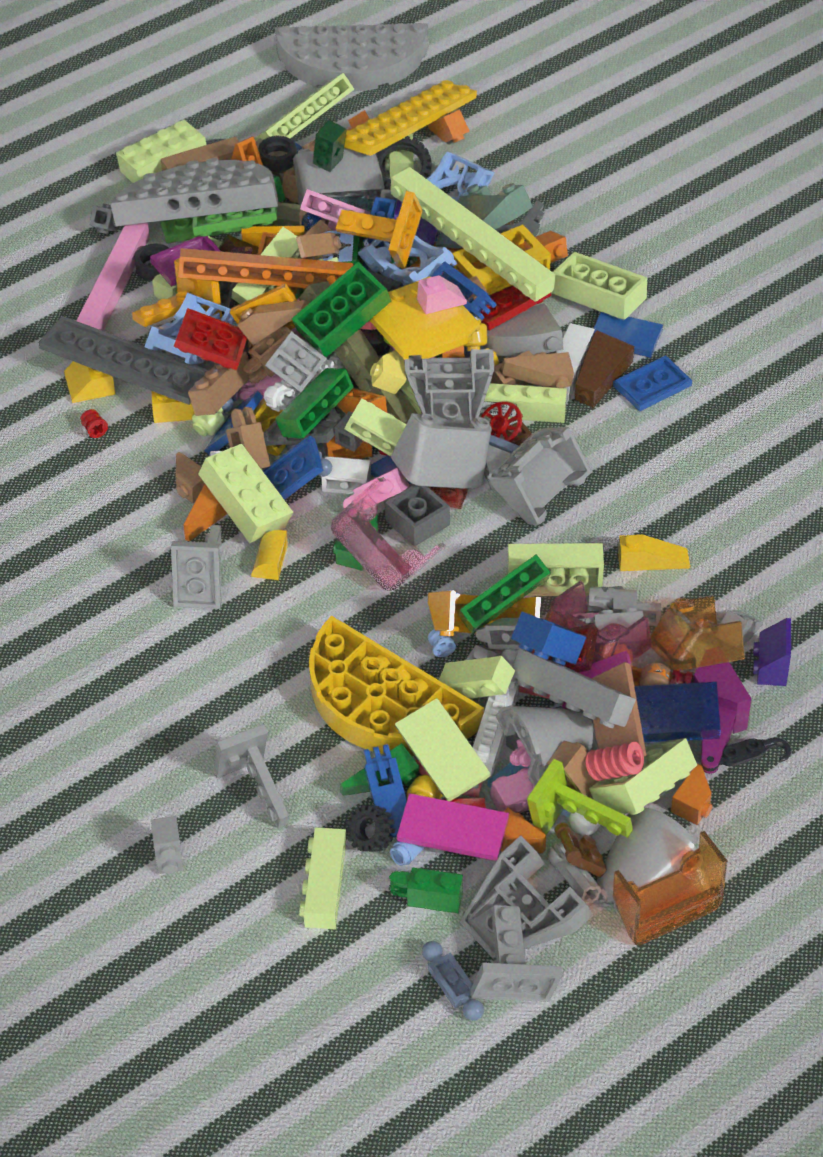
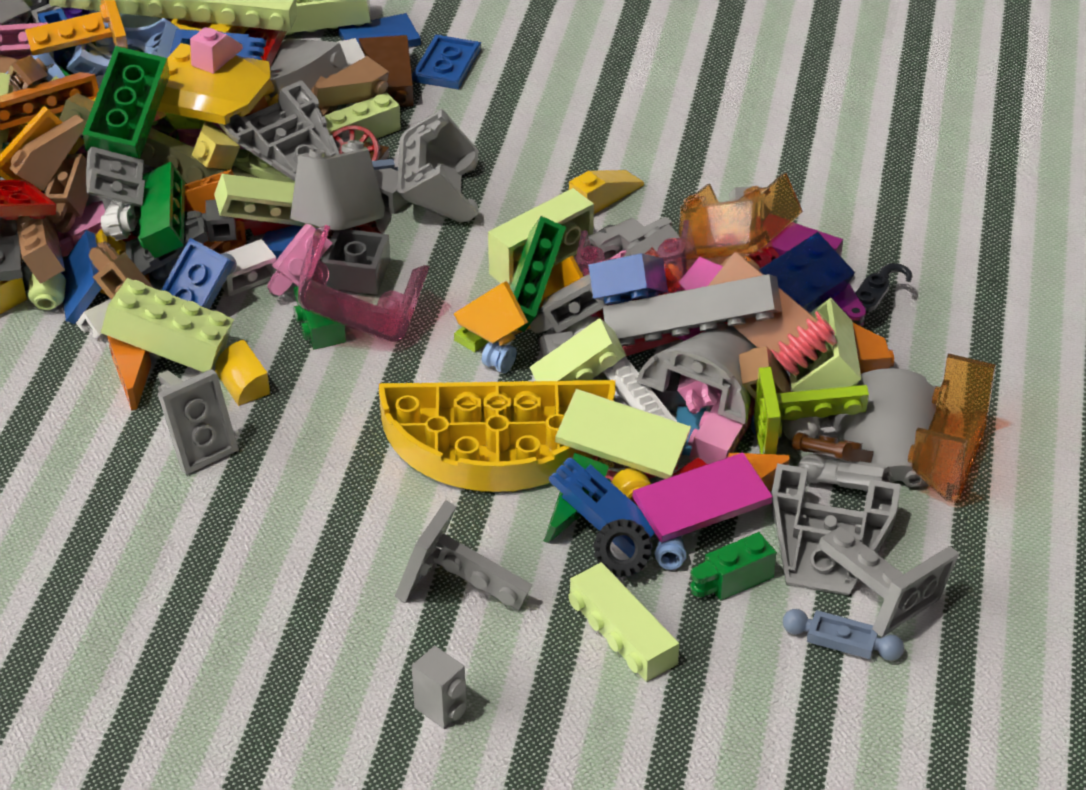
camera: 40 degrees left, 5 degrees down
(187, 479) = (81, 349): medium nougat slope -> none
(773, 654) = (814, 197): dark purple slope -> none

